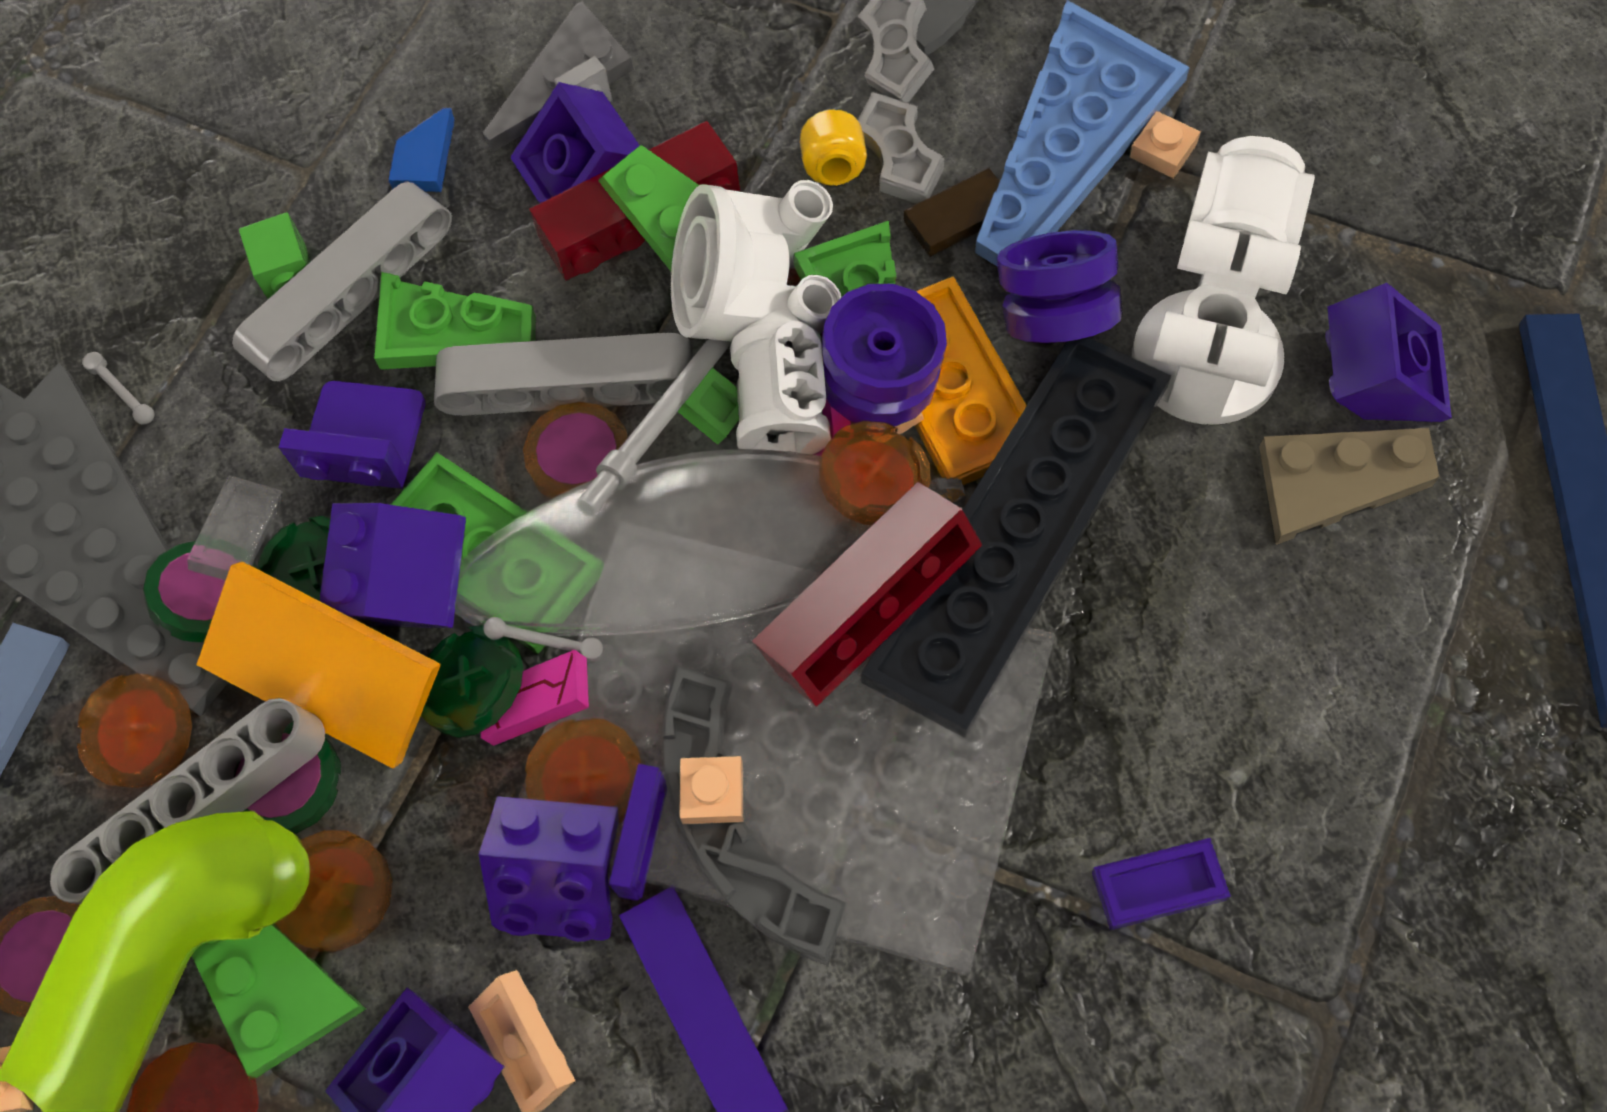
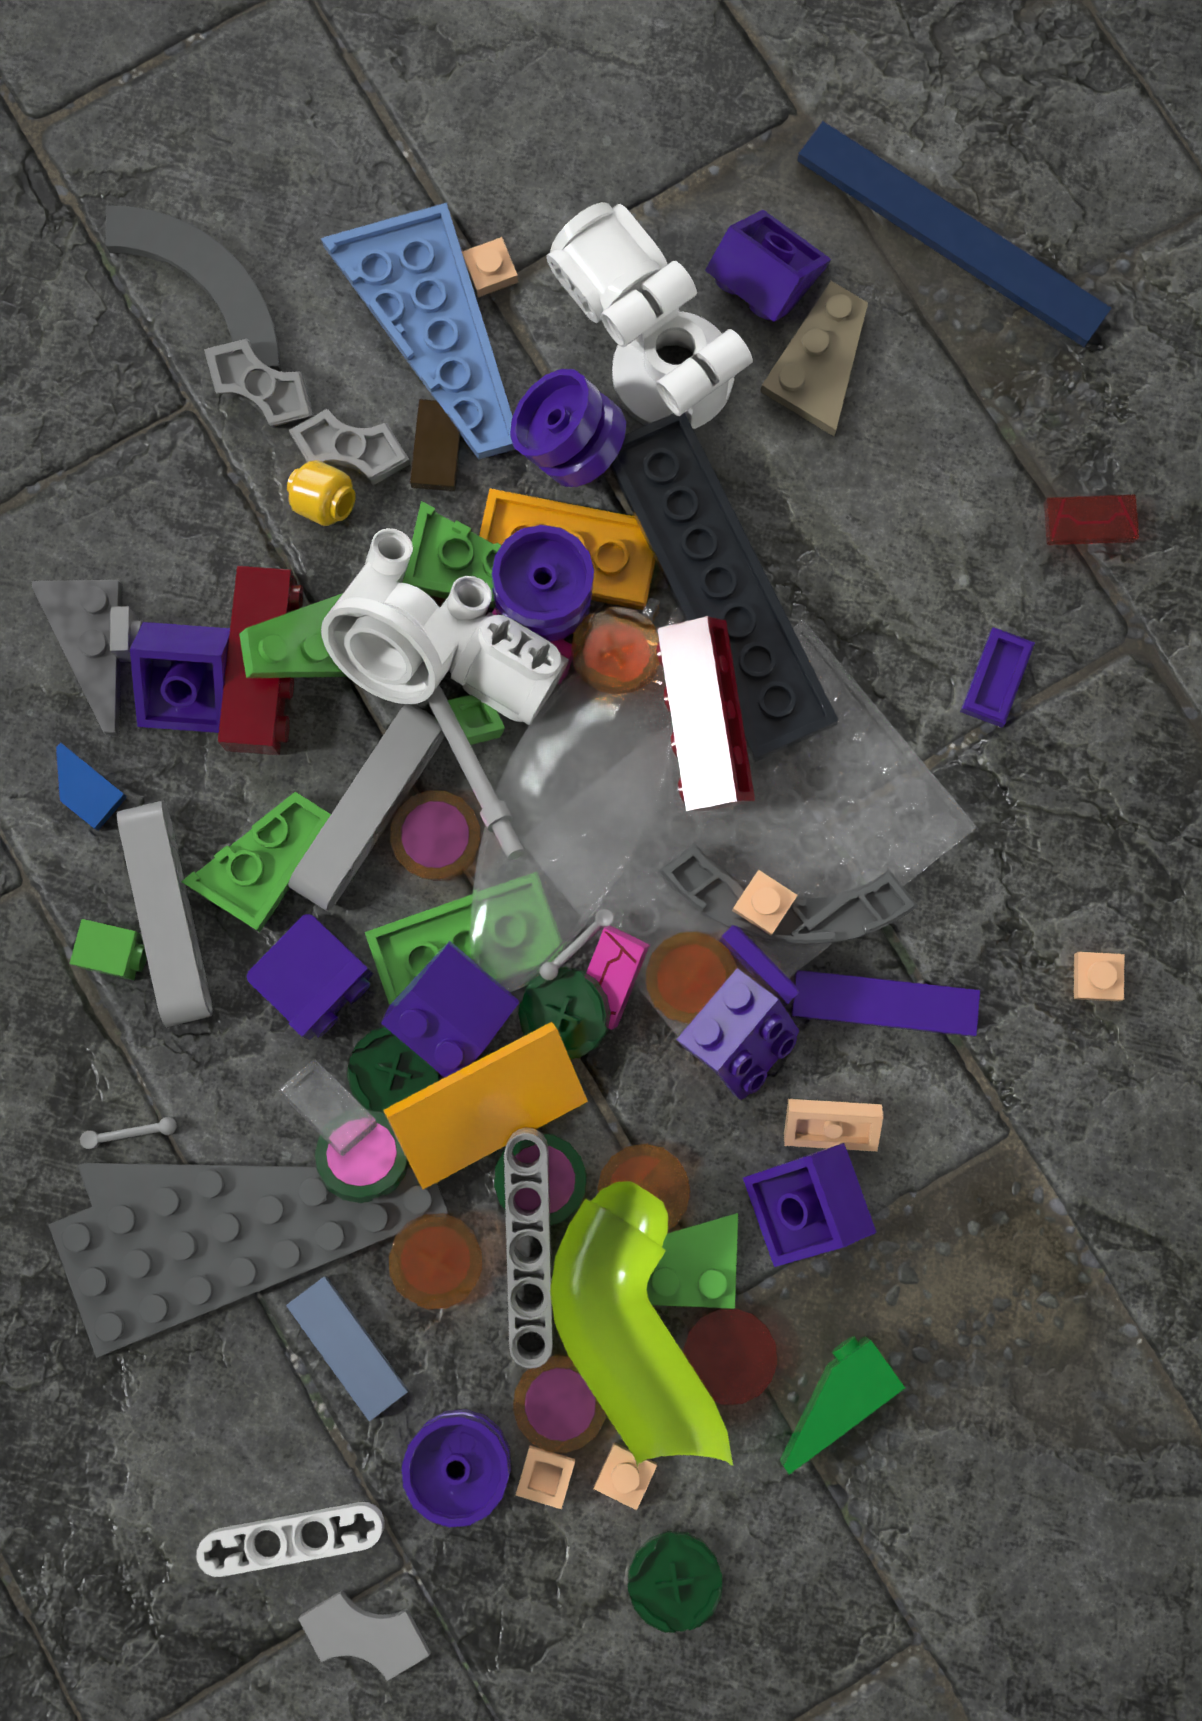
camera: 60 degrees left, 15 degrees up
(1421, 865) = (1091, 519): none -> clear red tile

